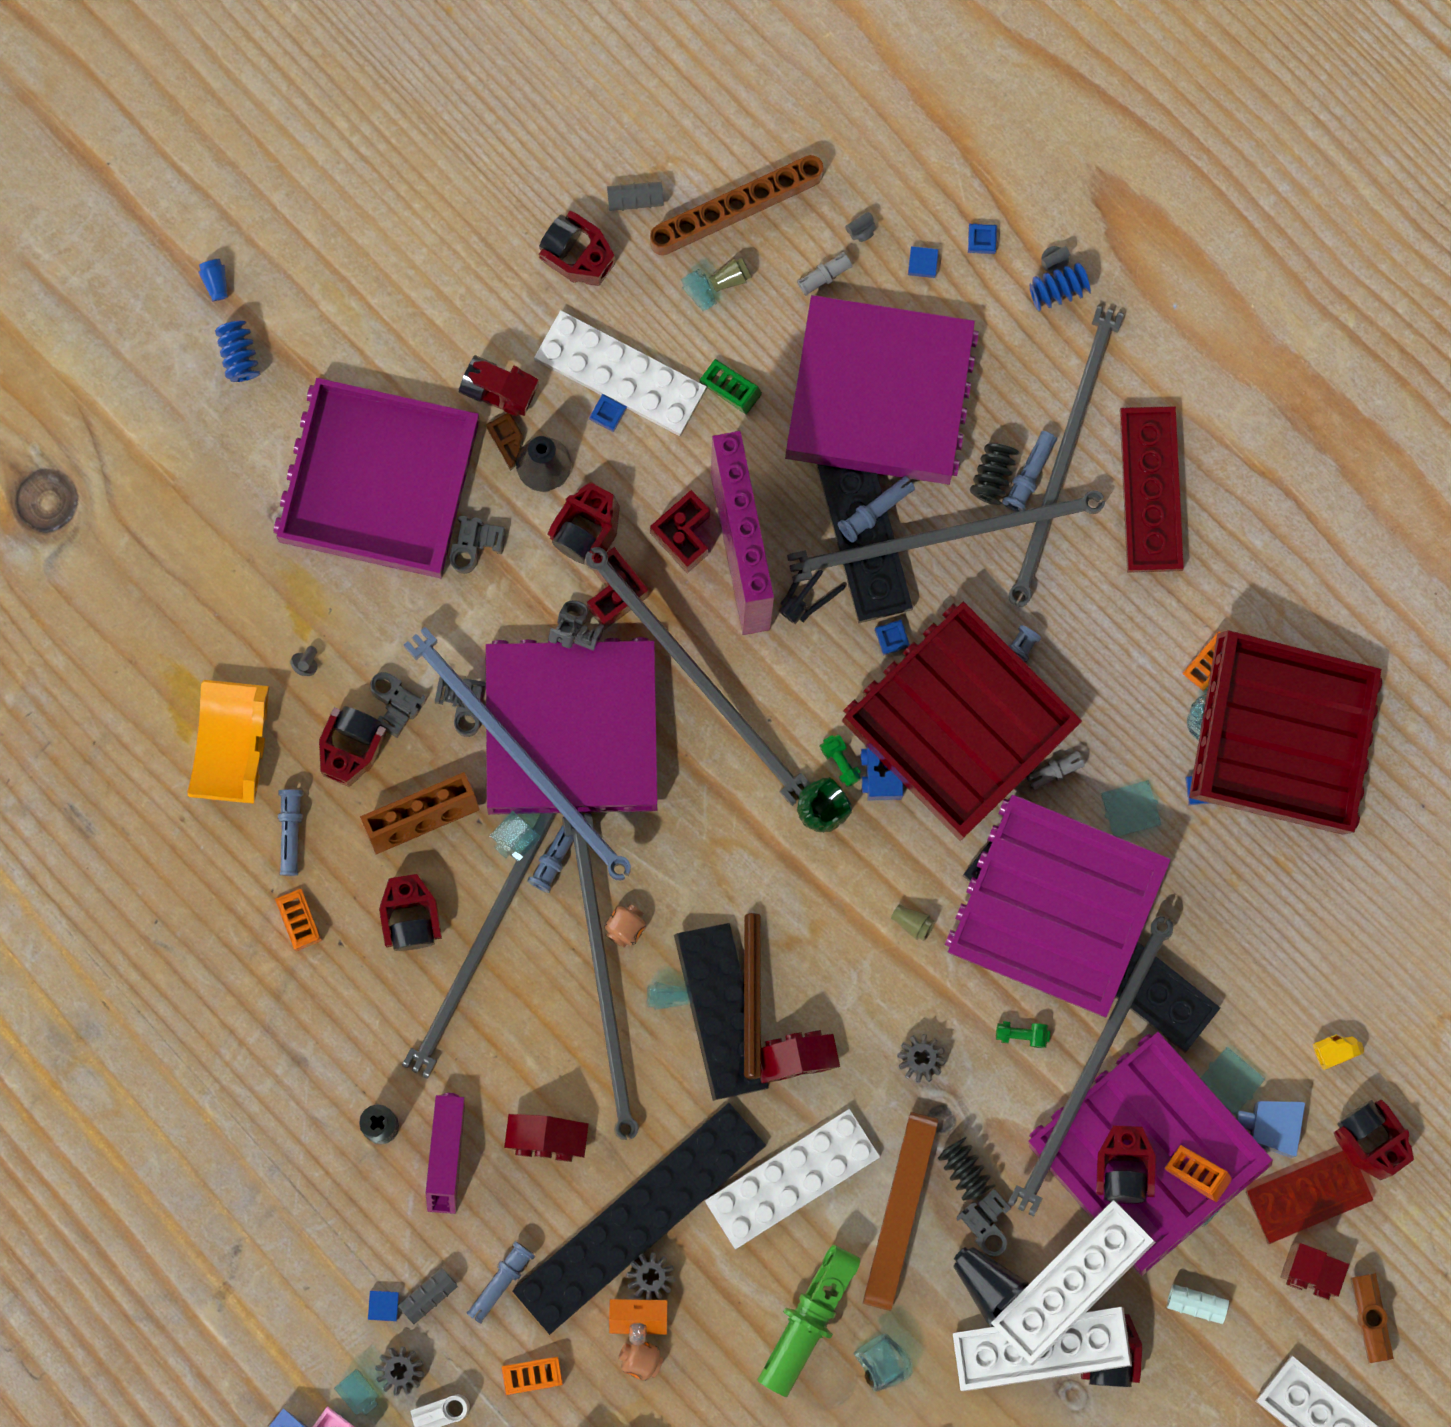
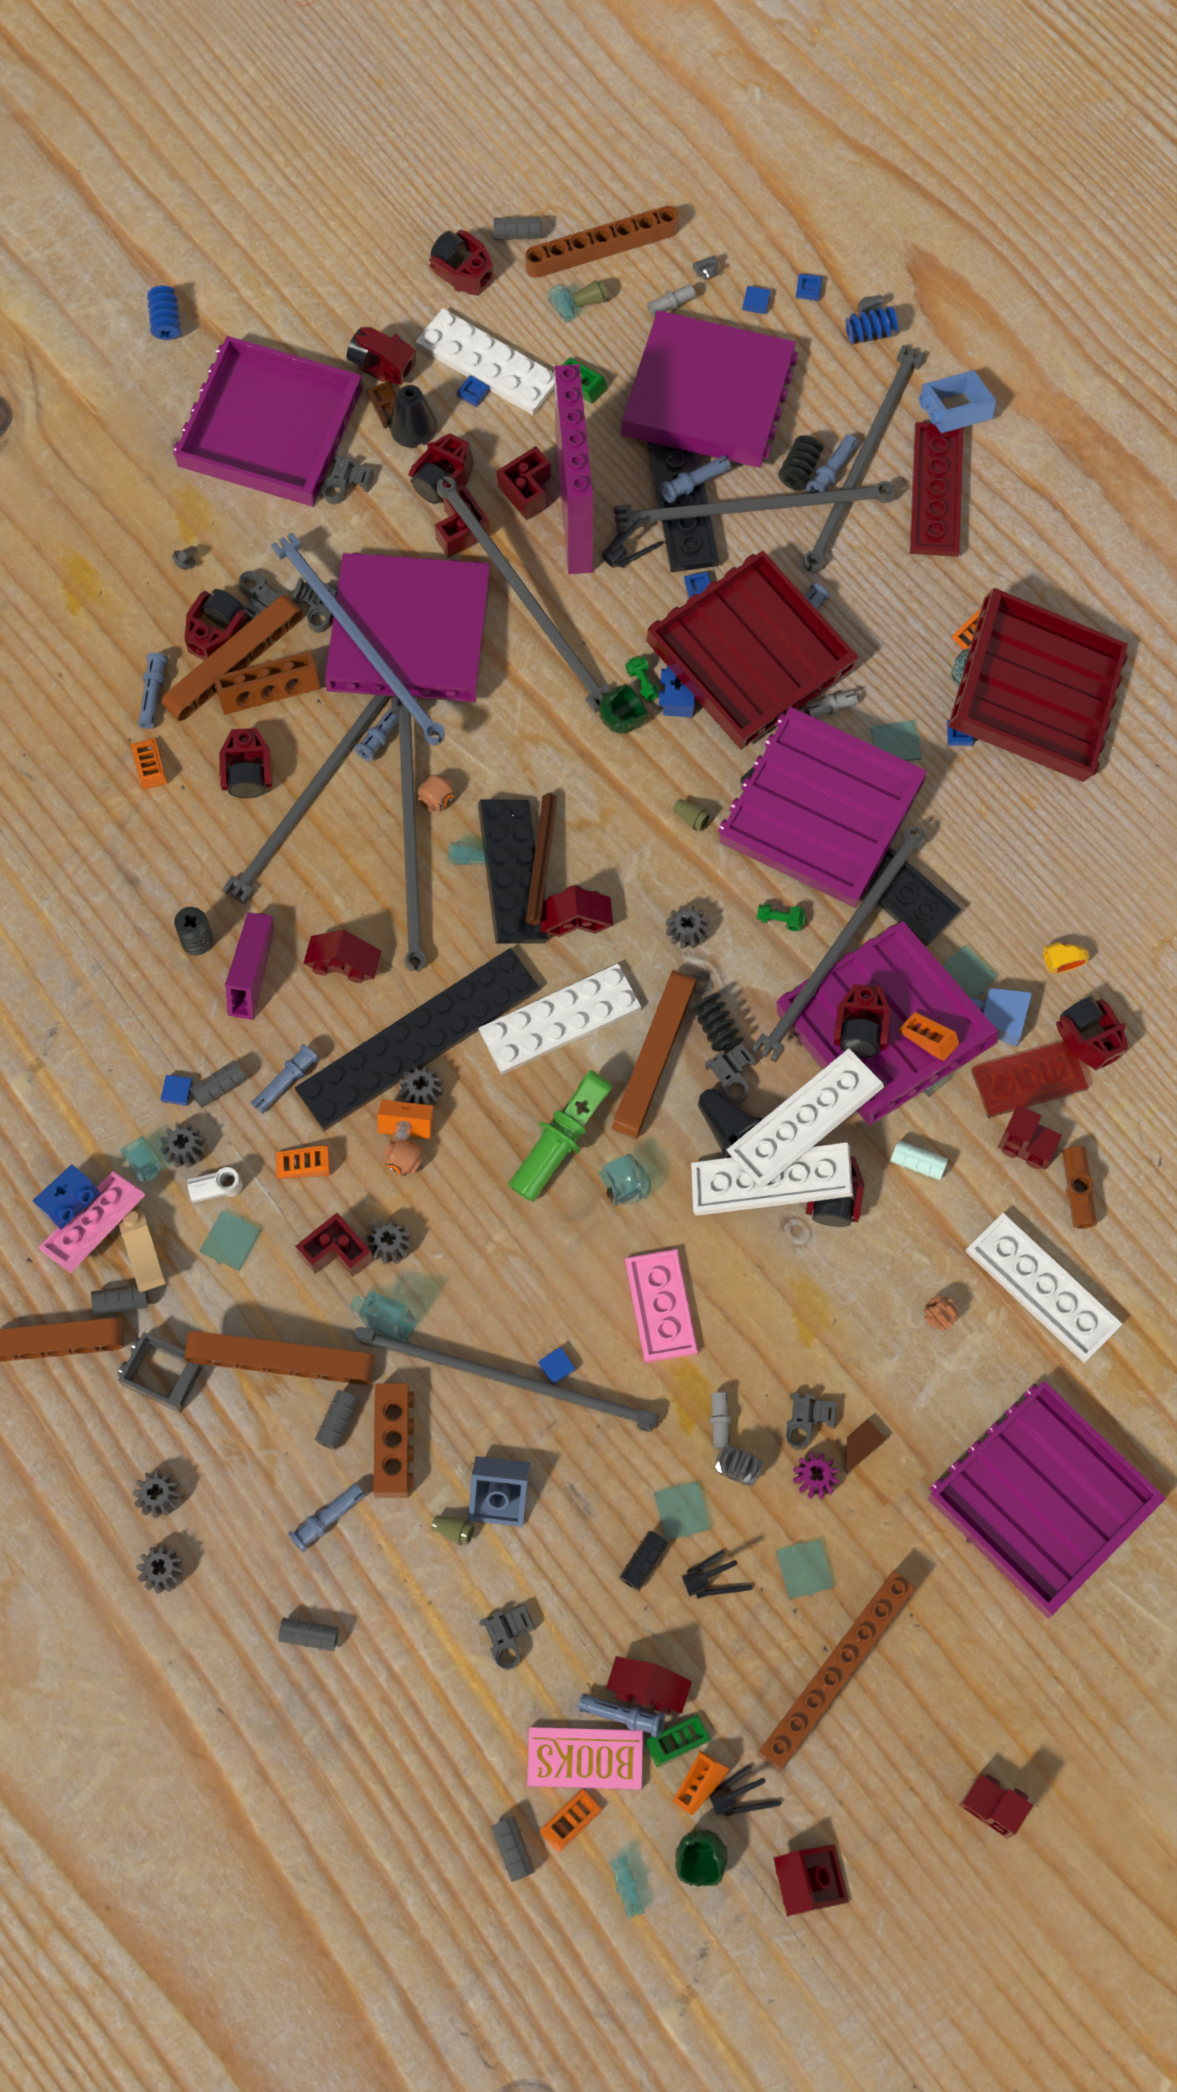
camera: 10 degrees right, 10 degrees down
(214, 279) = (153, 258): blue cone -> none
(229, 741) = (111, 611): light orange panel -> none
(376, 782) = (232, 656): none -> dark orange beam
(514, 837) = (347, 710): clear light blue brick -> none
(573, 627) = (421, 545): dark grey piece -> none
(1189, 366) = (970, 384): none -> medium blue window

